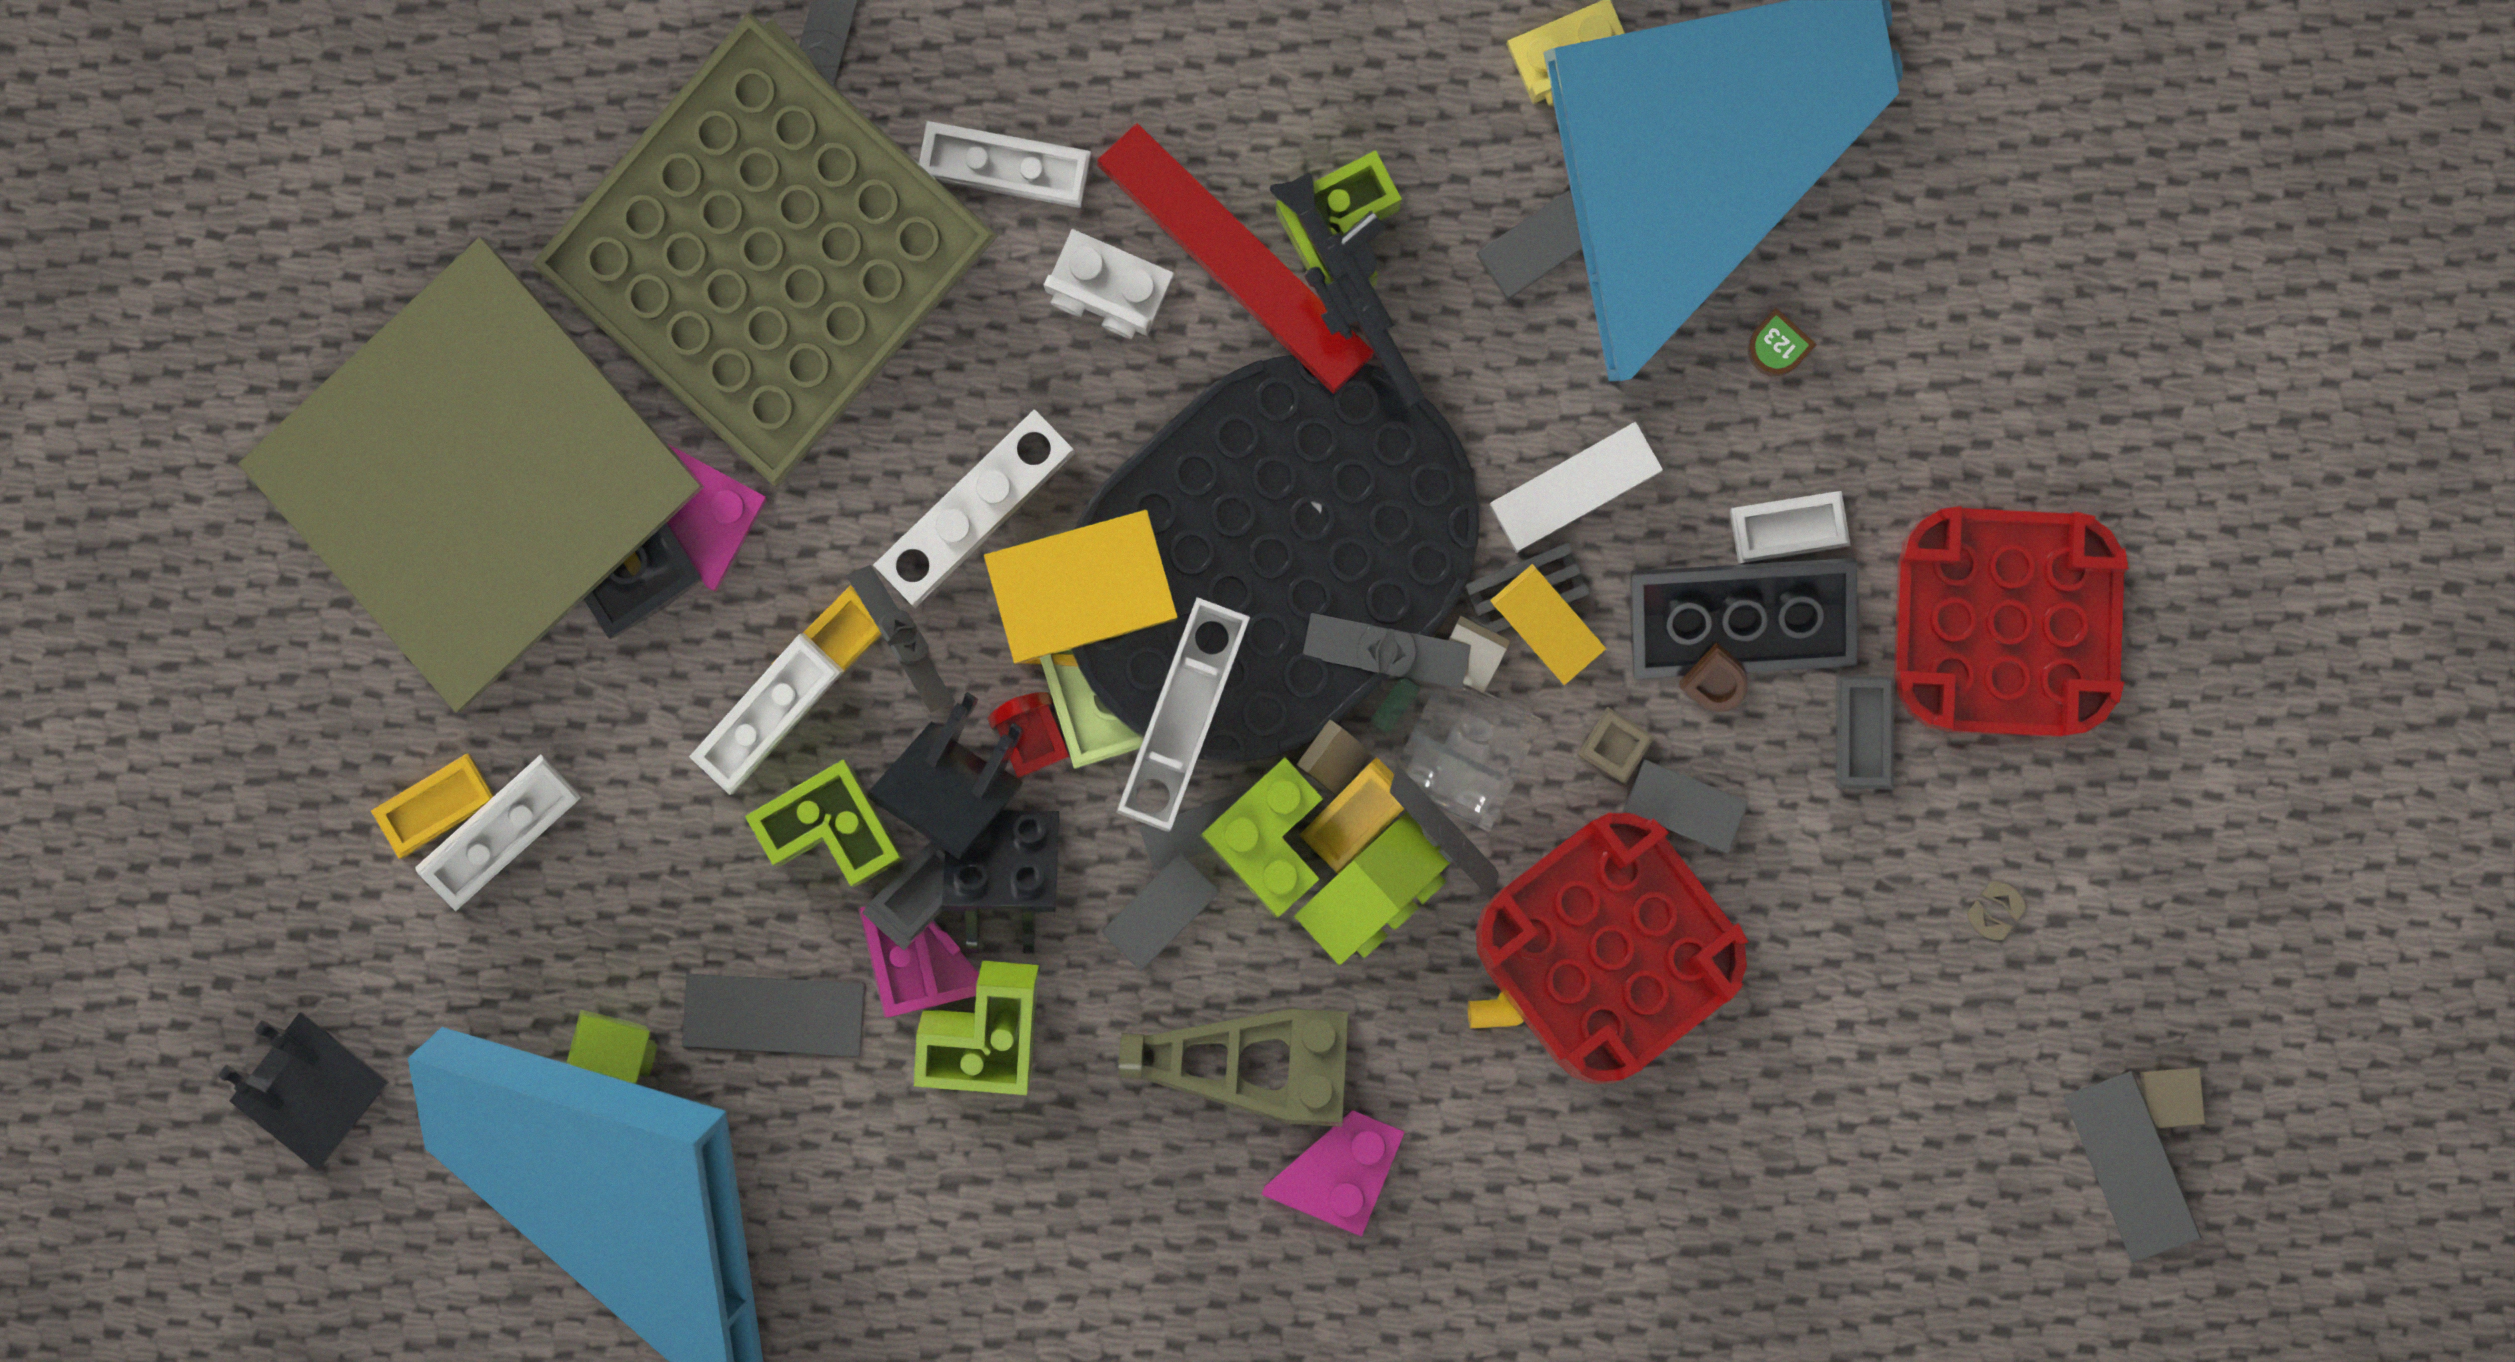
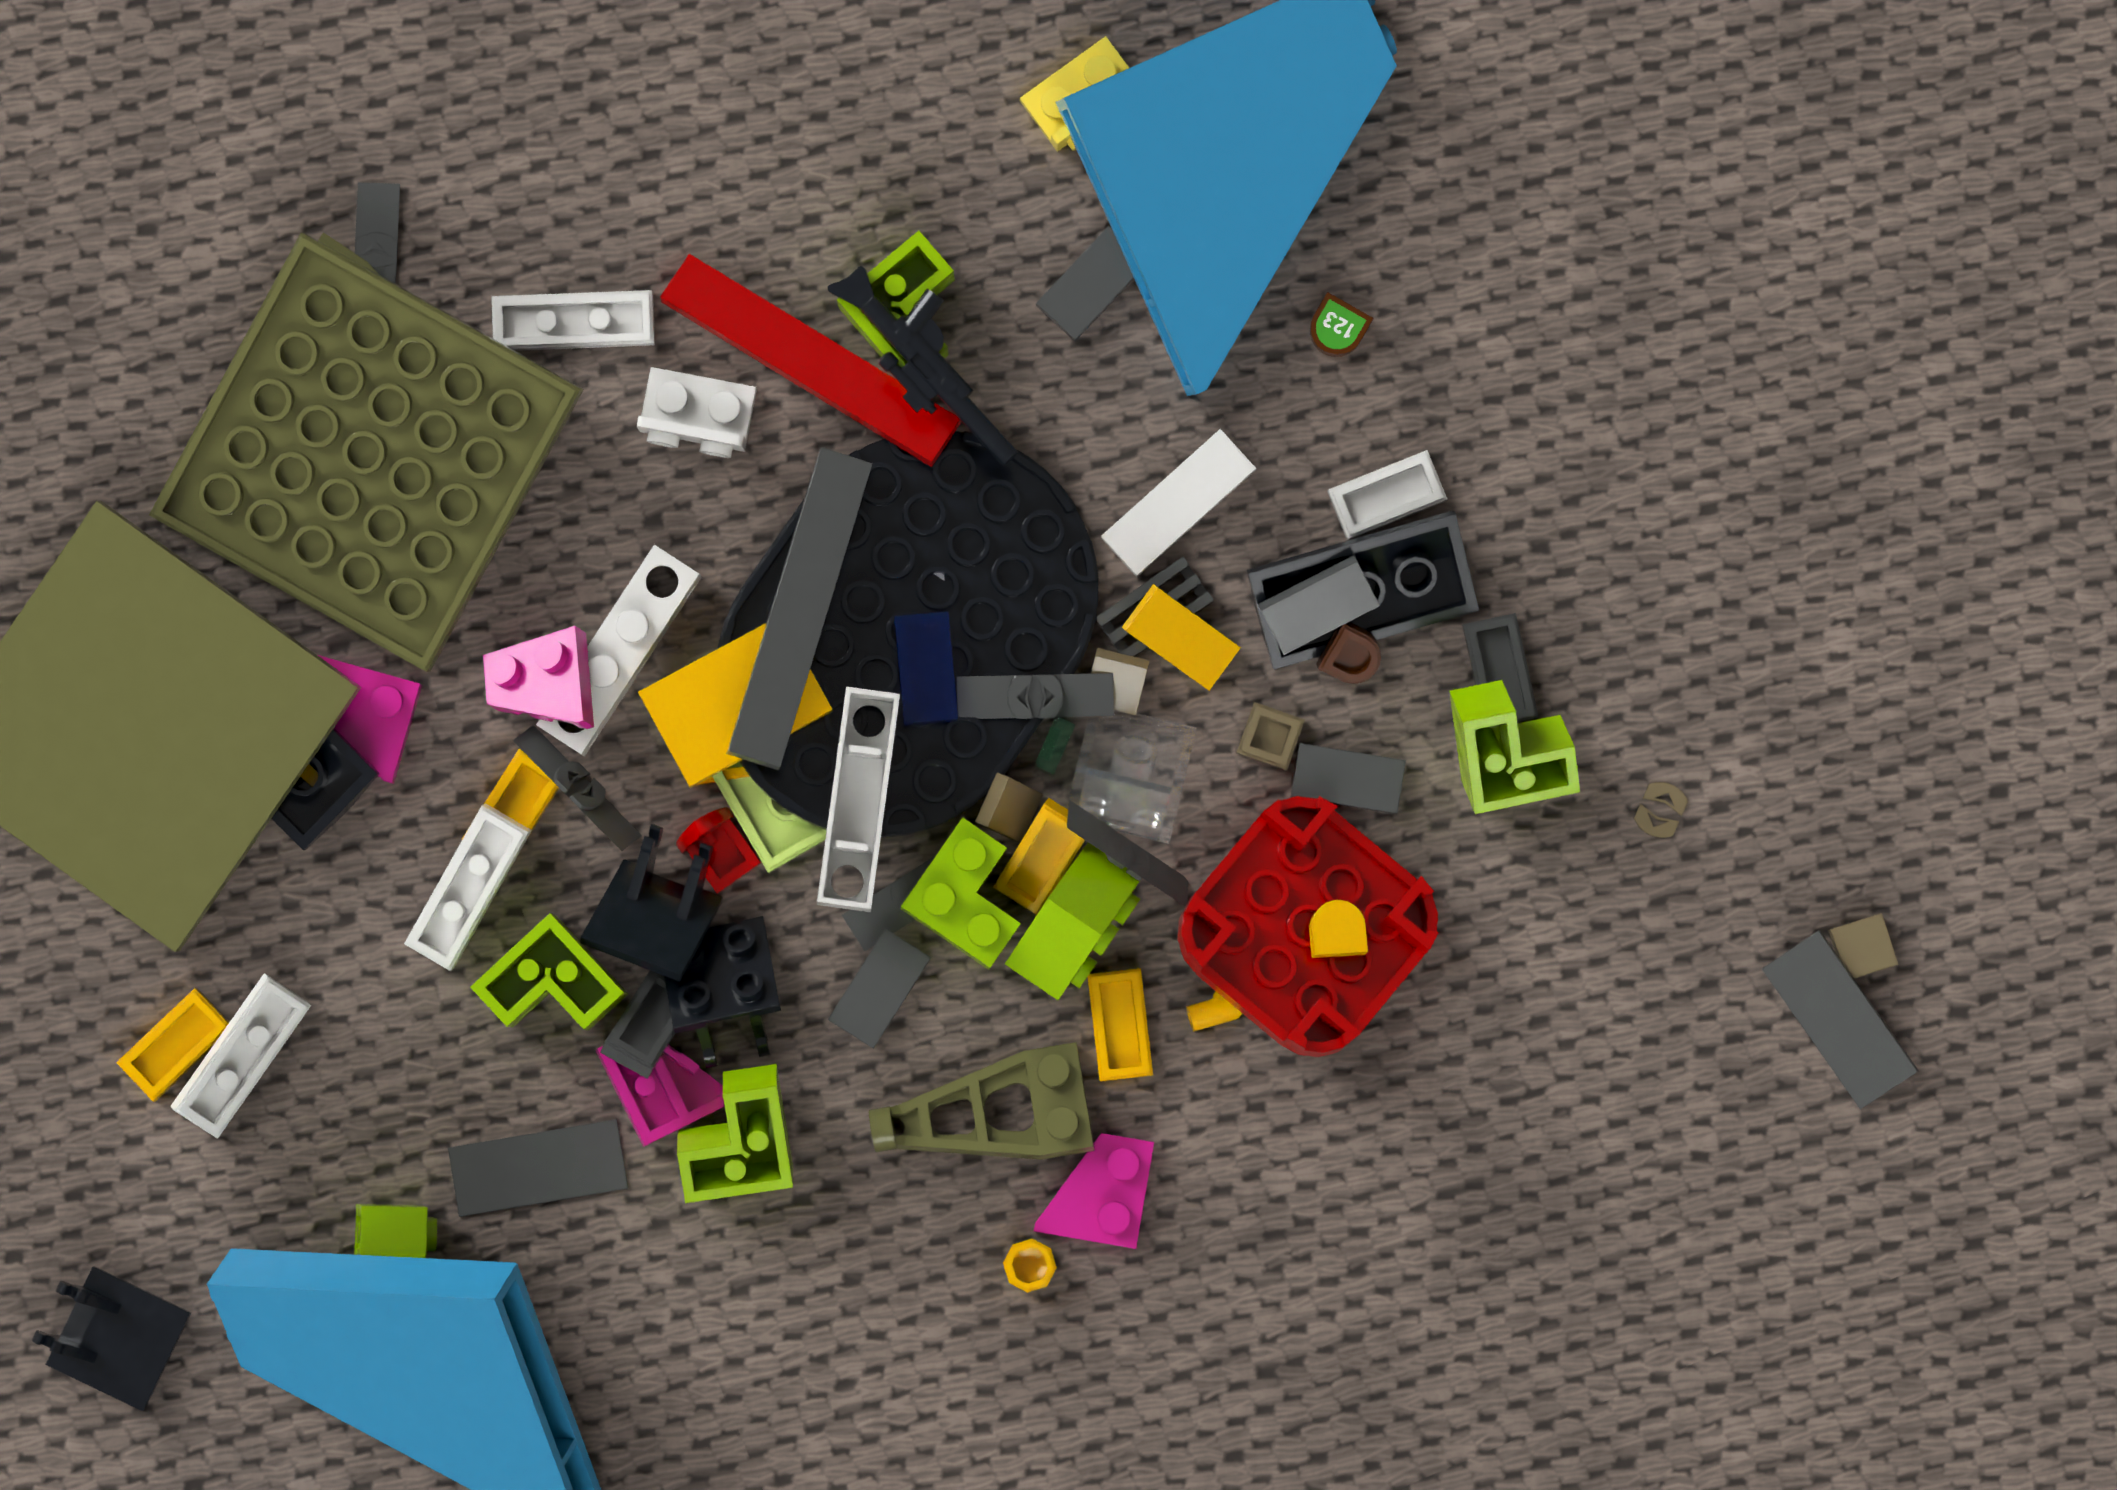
camera: 15 degrees left, 0 degrees up
(890, 519) = (543, 678): none -> wing
(1166, 507) = (799, 608): none -> dark grey tile
(1249, 1228) = (1029, 1265): none -> yellow tile
(1281, 597) = (926, 668): none -> clear blue tile
(1396, 1004) = (1120, 1024): none -> yellow tile
(1641, 960) = (1337, 930): none -> yellow tile
(1696, 623) = (1318, 605): none -> tile
(1851, 824) = (1509, 760): none -> lime brick
(2009, 622) = (1612, 537): red tile -> none

